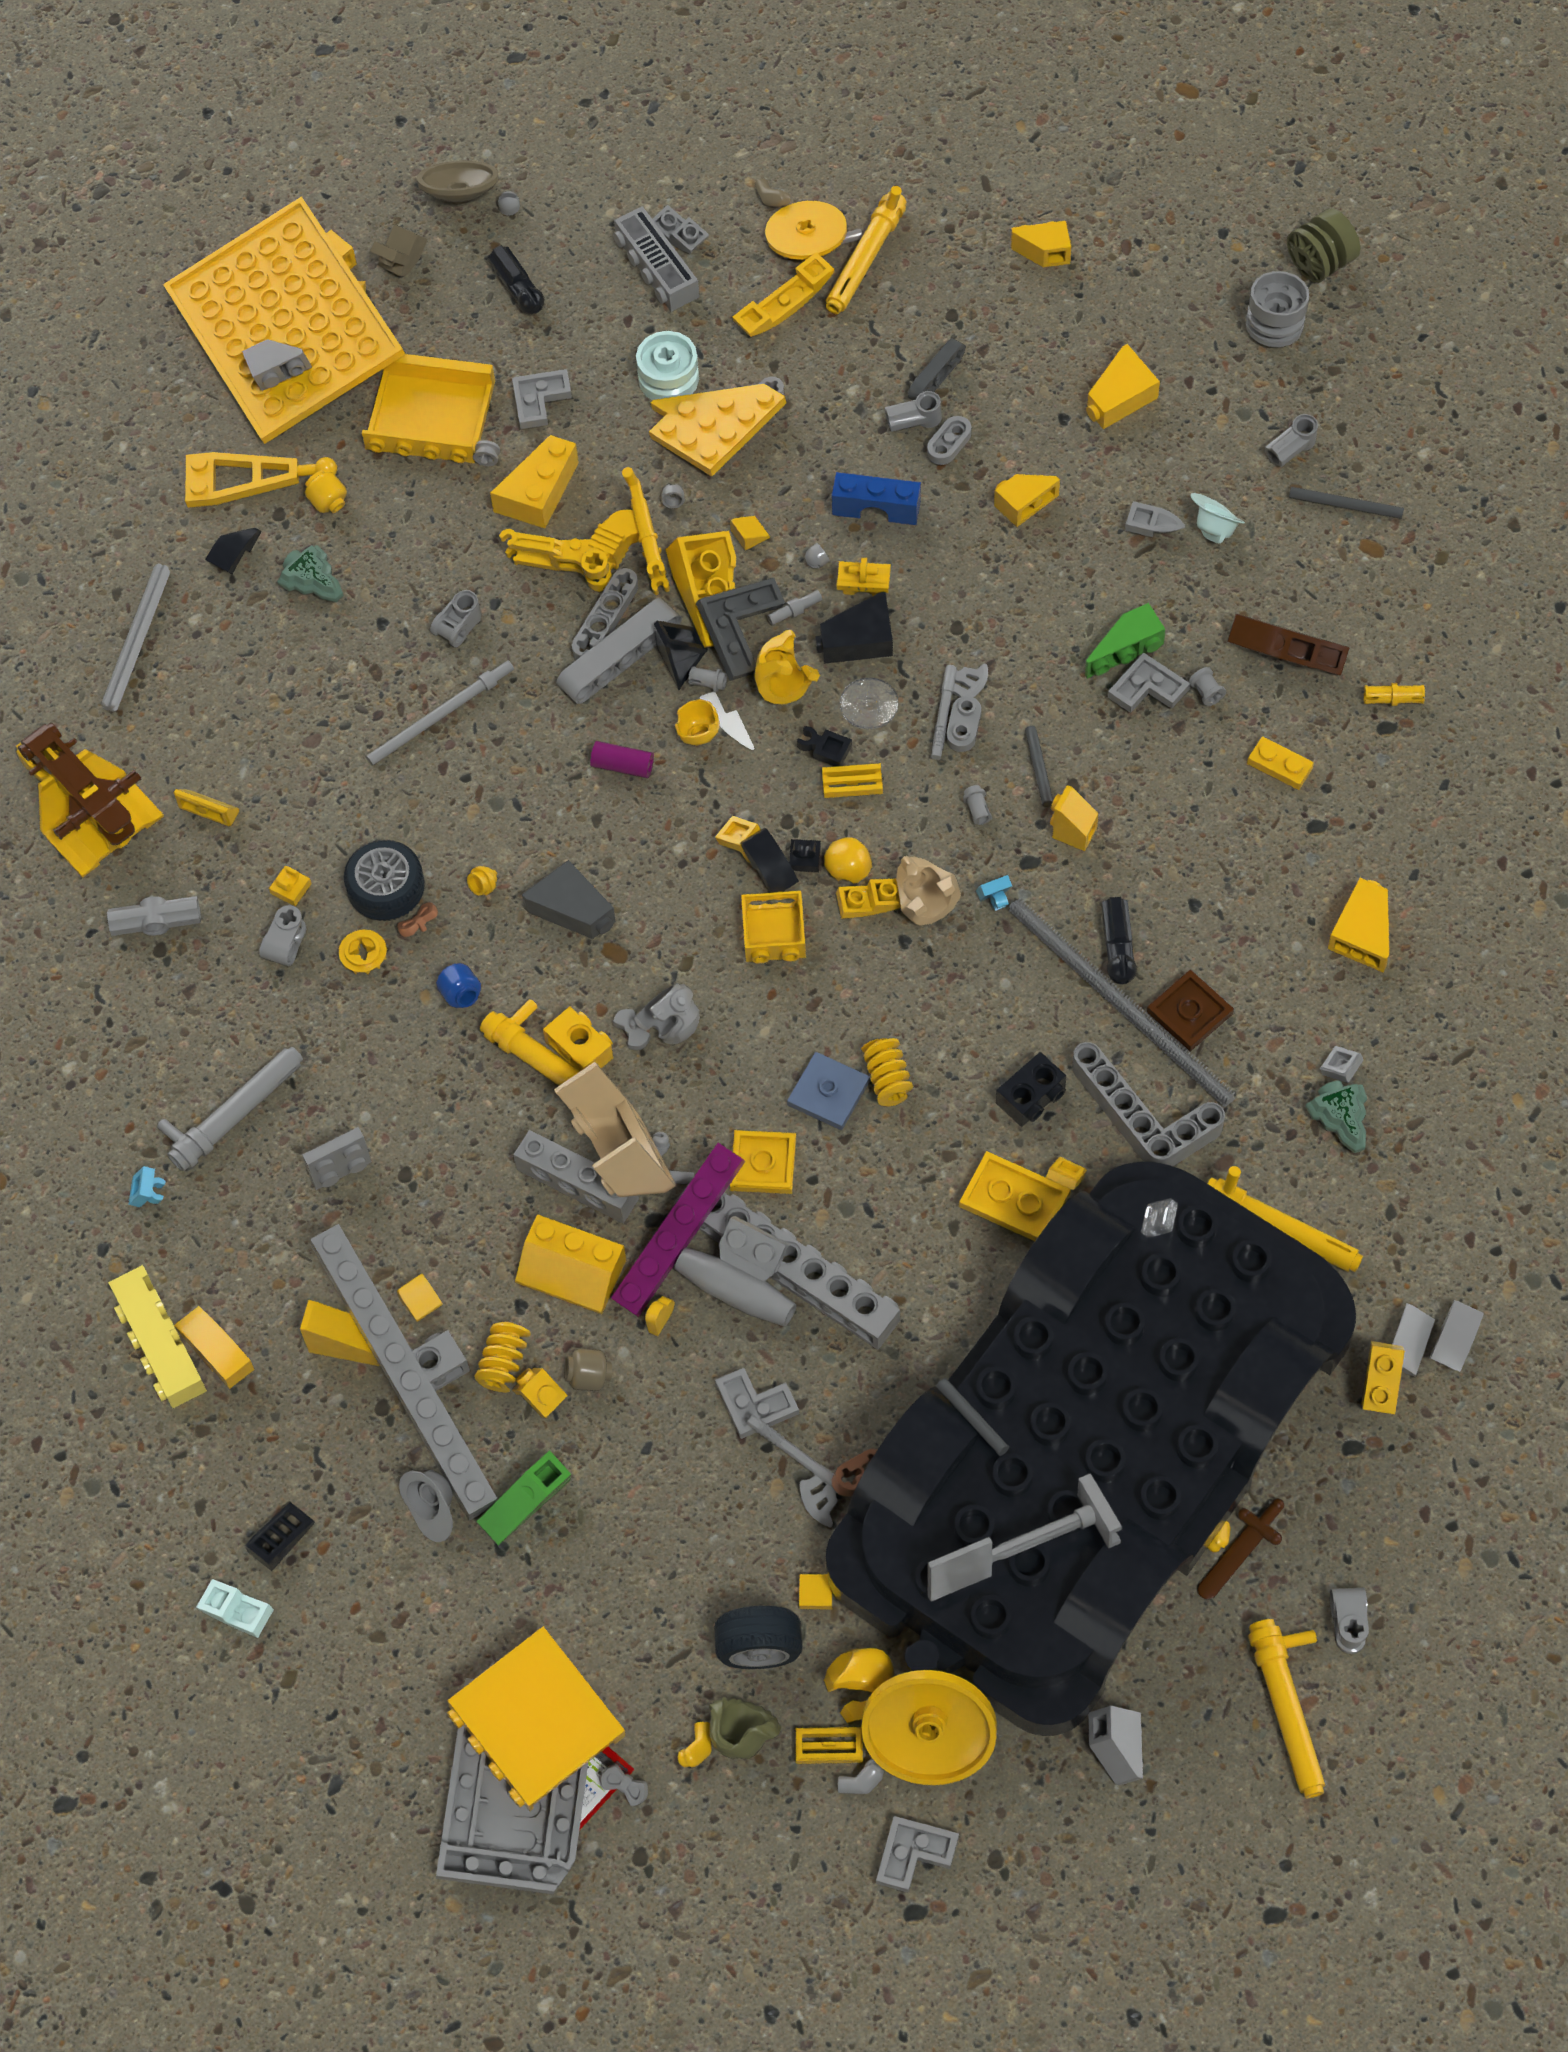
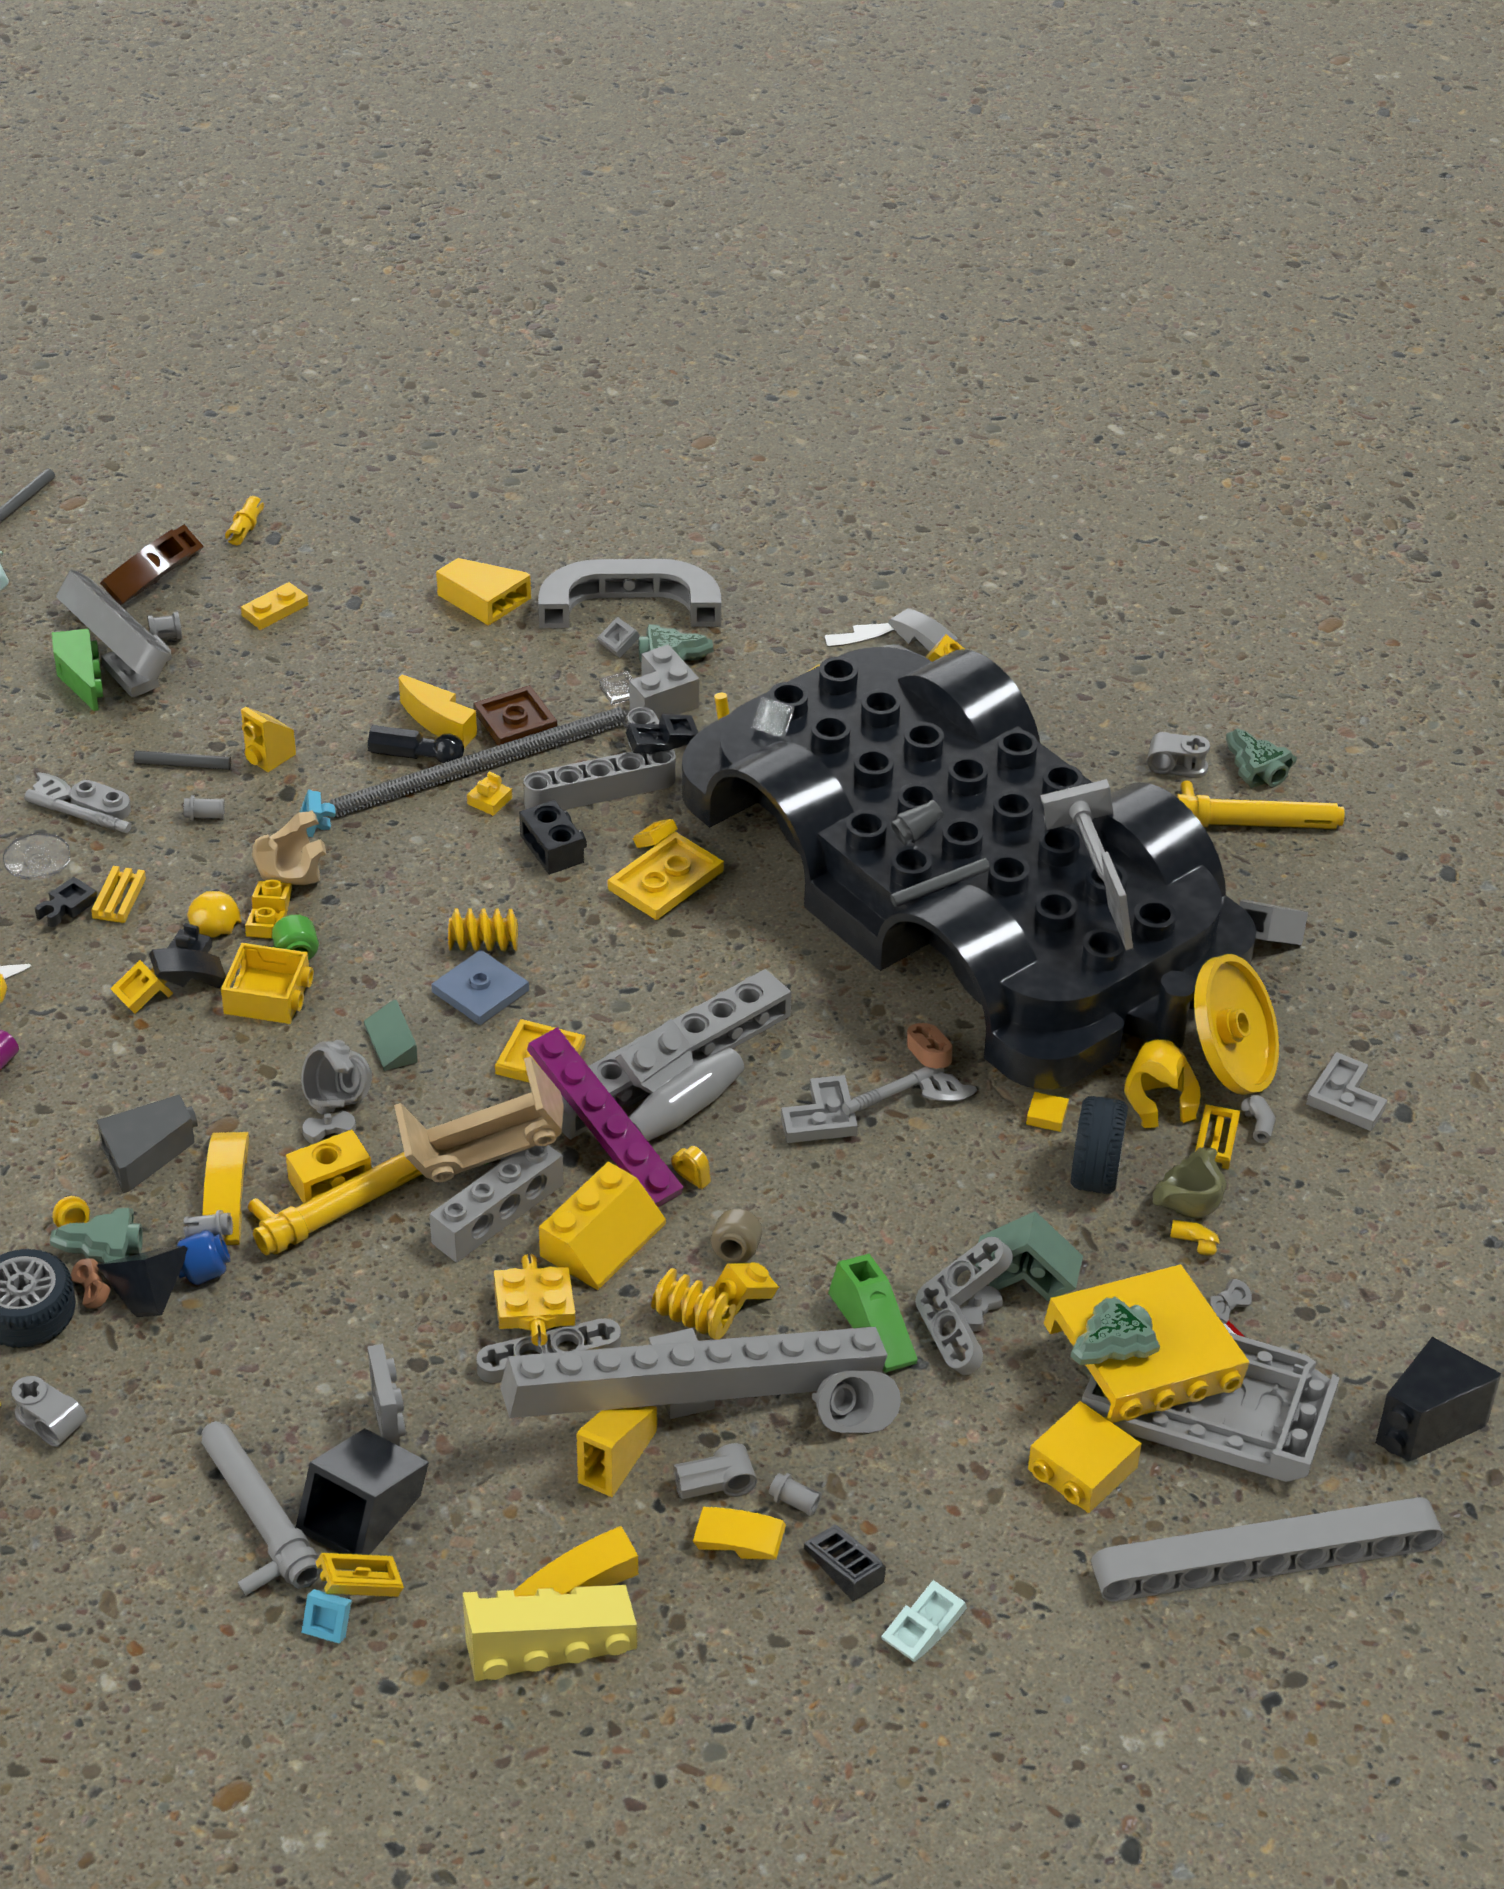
camera: 80 degrees left, 20 degrees down
(167, 1175) = (362, 1580): none -> yellow tile
(257, 1173) = (359, 1492): none -> black slope
(281, 1451) = (738, 1530): none -> yellow slope
(333, 1482) = (794, 1493): none -> light grey pin
(339, 1423) = (726, 1470): none -> light grey piece
(360, 1862) = (1266, 1549): none -> light grey beam
(371, 942) = (94, 1334): yellow gear -> none
(417, 1695) = (1084, 1456): none -> yellow piece
(427, 954) = (145, 1278): none -> black slope
(435, 1264) = (591, 1330): none -> light grey beam
(463, 912) = (101, 1238): none -> sand green rock
(478, 1235) = (534, 1298): none -> yellow plate
(489, 985) = (217, 1223): none -> light grey pin
(504, 1682) = (1116, 1334): none -> sand green rock
(534, 1970) = (1436, 1401): none -> black slope
(545, 972) = (225, 1178): none -> yellow slope
(549, 1549) = (951, 1296): none -> light grey beam
(579, 1585) = (984, 1300): none -> light grey piece
(614, 1601) = (1038, 1257): none -> sand green brick
(745, 1042) = (391, 1037): none -> sand green slope
(834, 930) = (296, 934): none -> bright green head
(1039, 1374) = (914, 823): none -> dark grey cone
(1077, 1023) = (489, 794): none -> yellow tile
(1169, 944) = (437, 709): none -> yellow slope
(1171, 645) = (113, 625): none -> light grey beam
(1181, 1138) = (669, 734): none -> black slope
(1271, 1128) = (665, 684): none -> light grey brick
(1272, 1087) = (616, 687): none -> clear tile
(1374, 1698) = (1259, 759): none -> sand green rock
(1401, 999) = (629, 580): none -> light grey arch
(1447, 1283) = (861, 633): none -> white sticker

